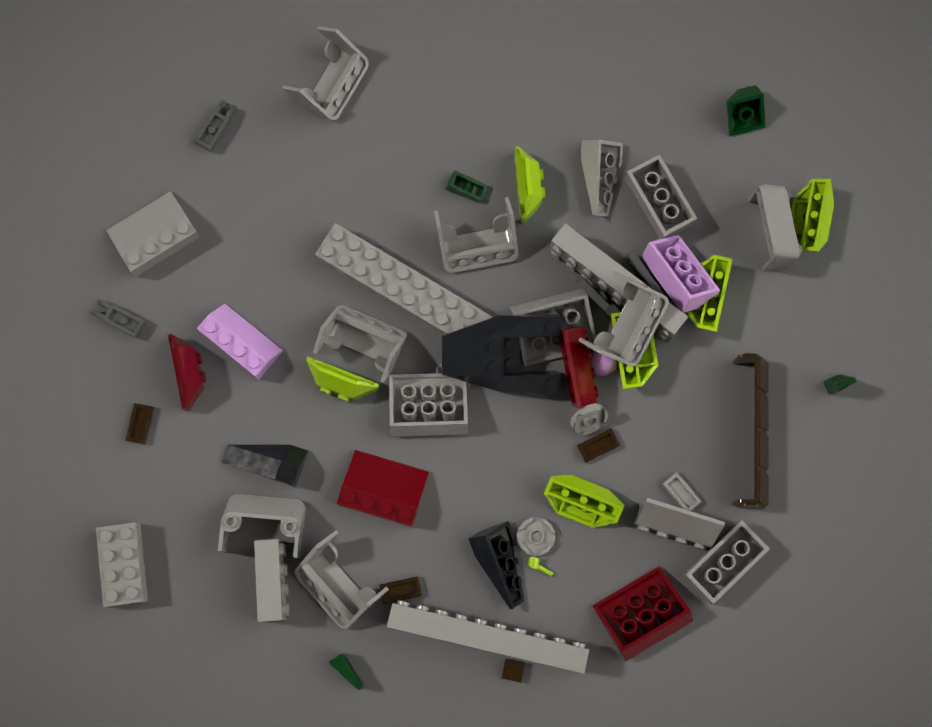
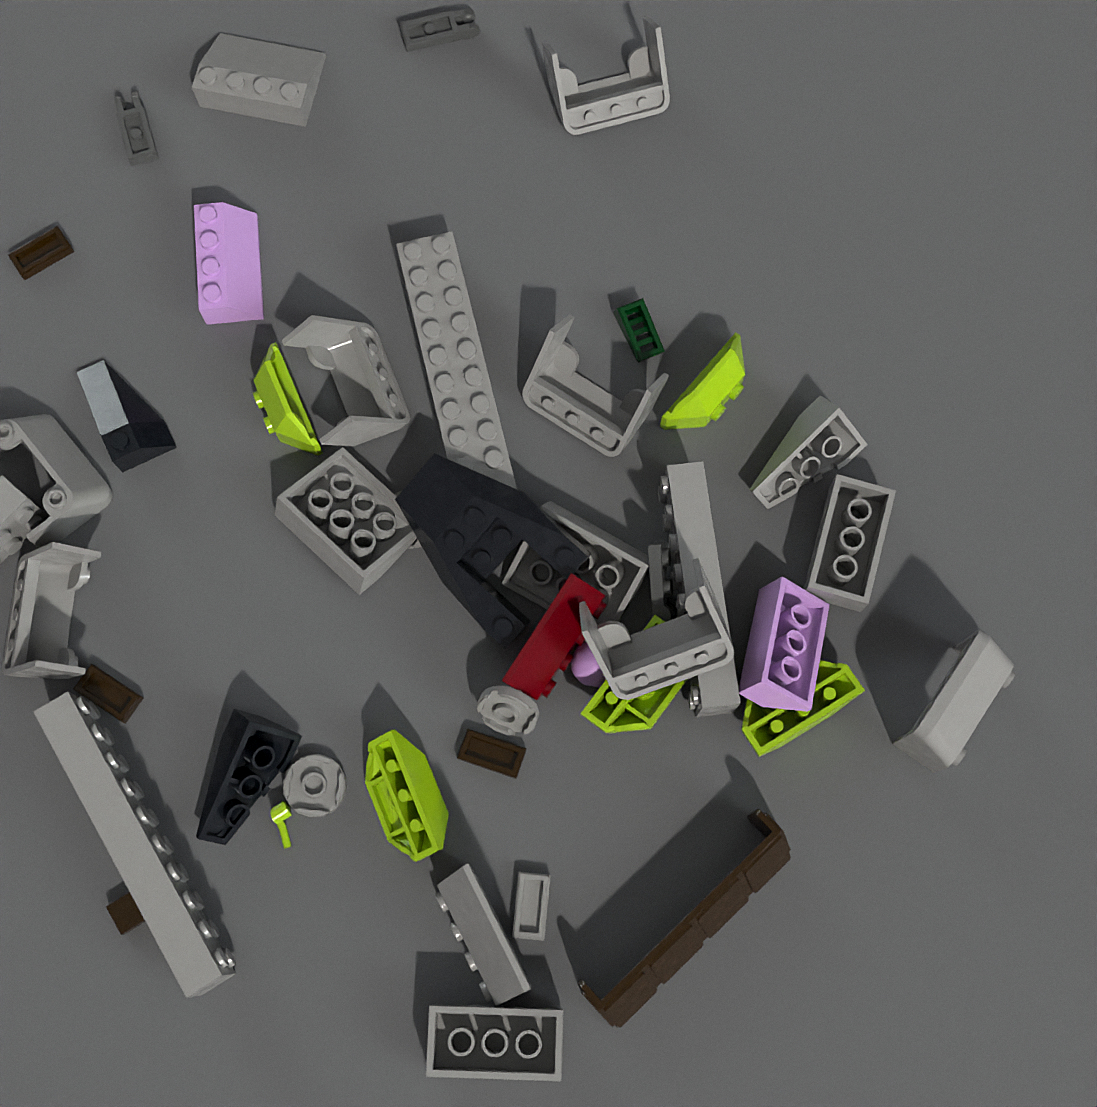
camera: 45 degrees right, 5 degrees down
(187, 371) = (139, 242): dark red wedge -> none
(382, 488) = (205, 563): dark red slope -> none
(641, 271) = (741, 611): dark grey tile -> none
(643, 613) = (338, 1001): dark red slope -> none
(746, 110) = (1053, 540): dark green slope -> none
(813, 214) = (1019, 735): lime wedge -> none
(838, 383) = (852, 966): dark green slope -> none

